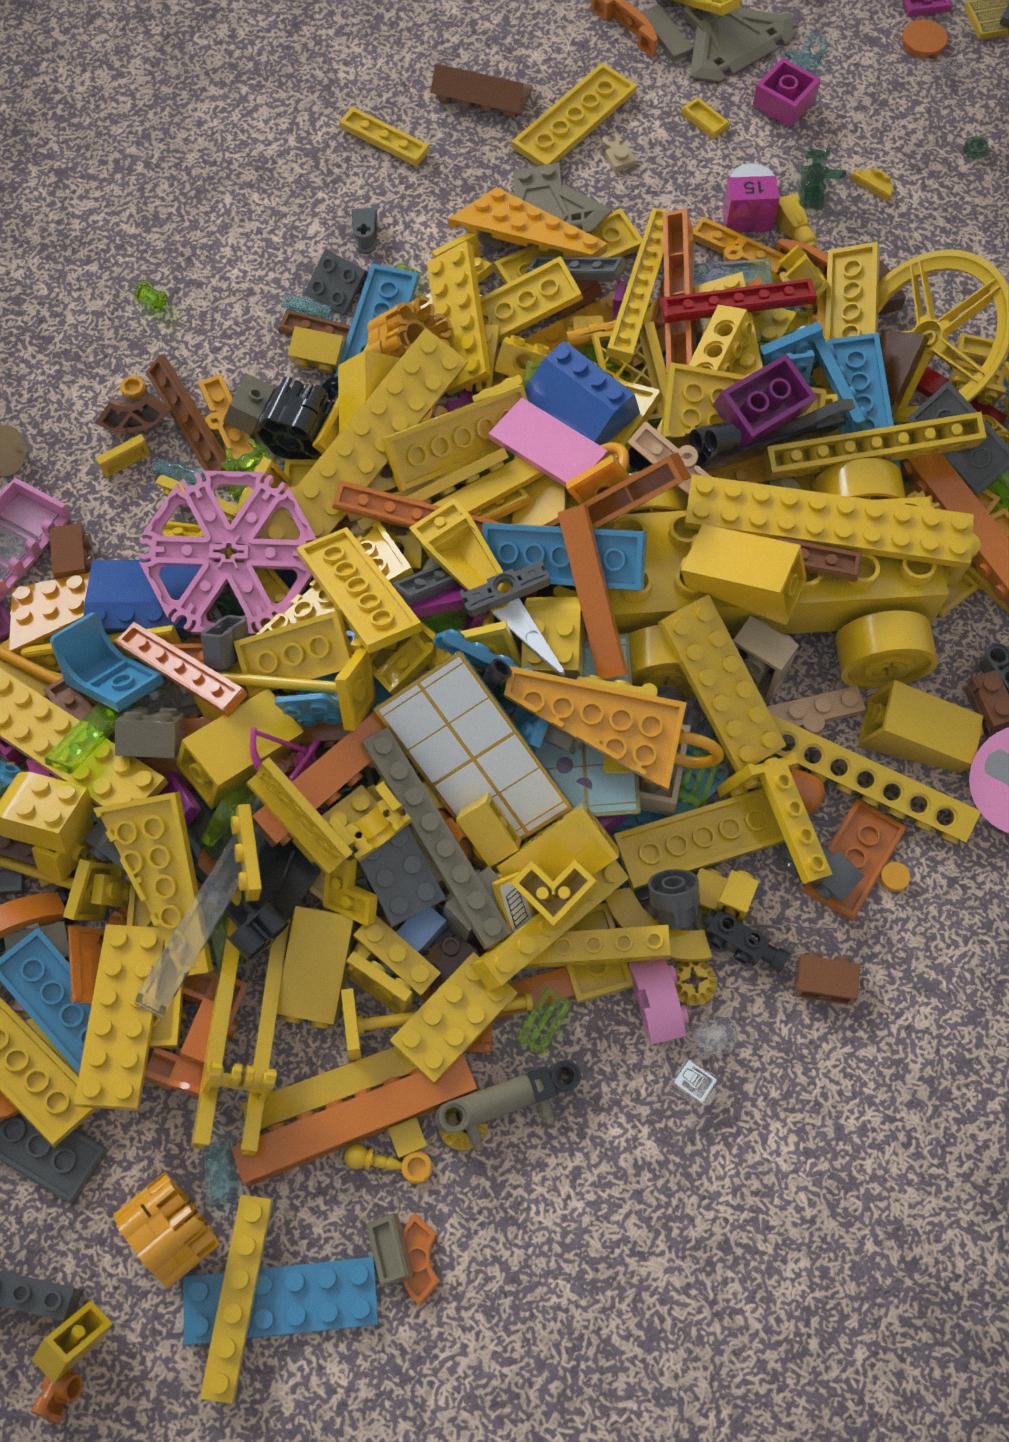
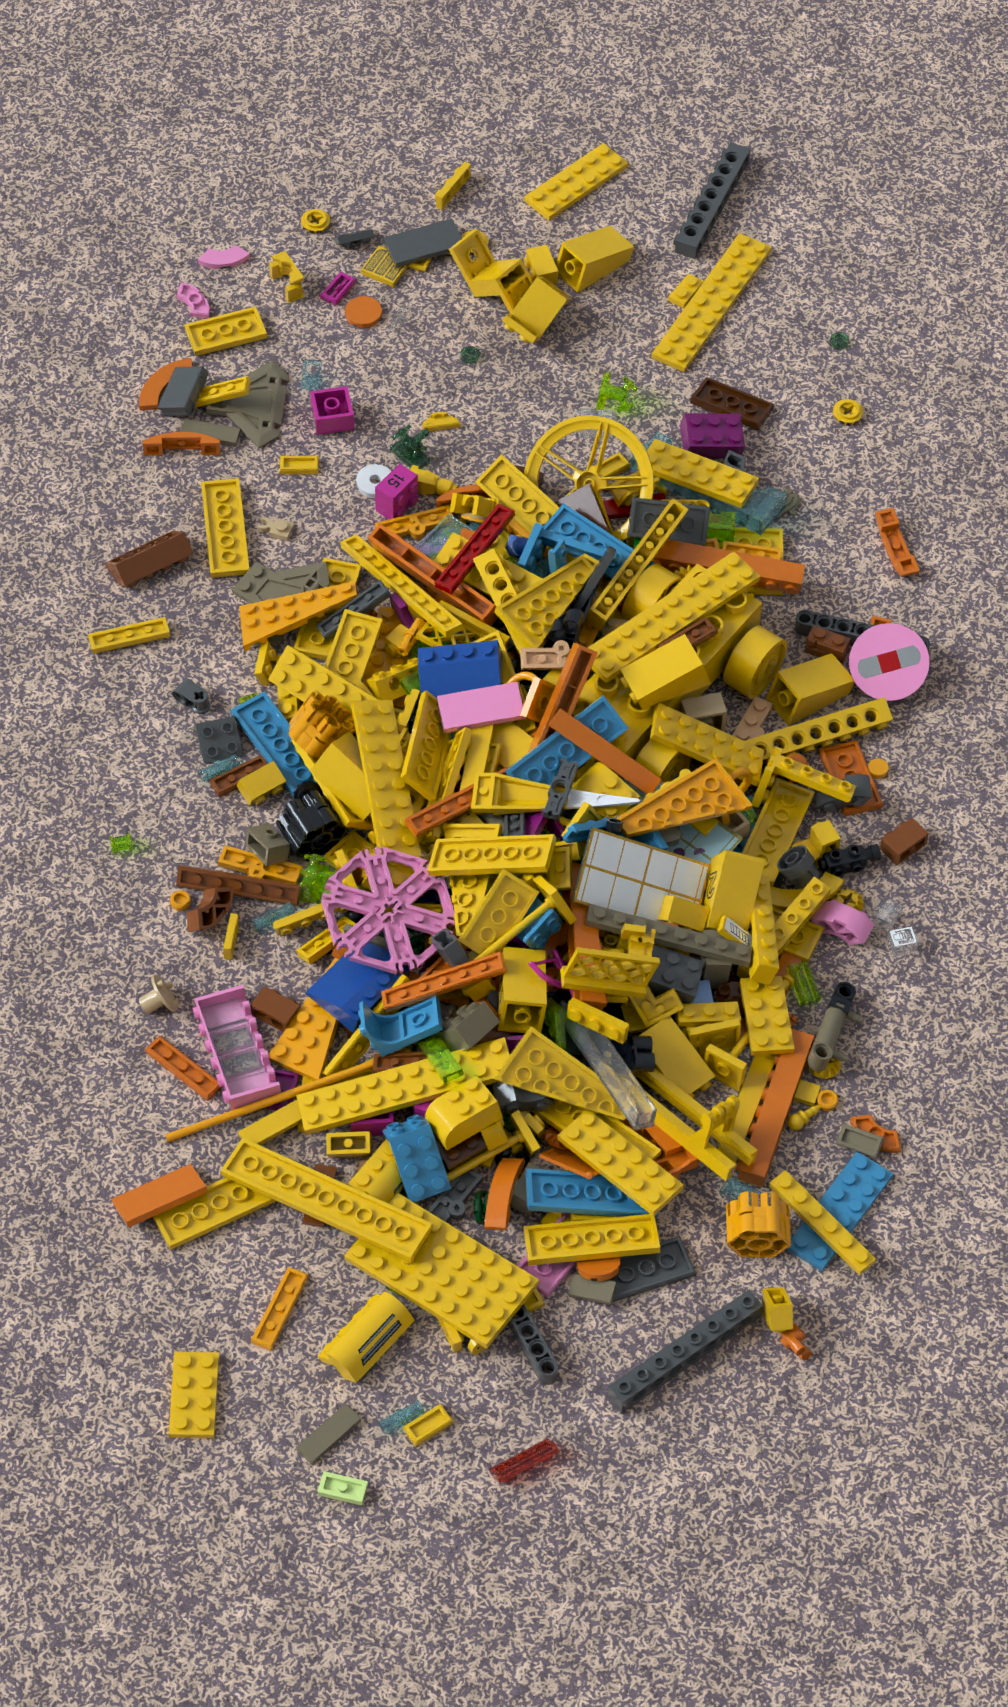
camera: 50 degrees left, 10 degrees down
(559, 897) = (757, 905): yellow brick -> none
(765, 400) = (567, 583): magenta brick -> none

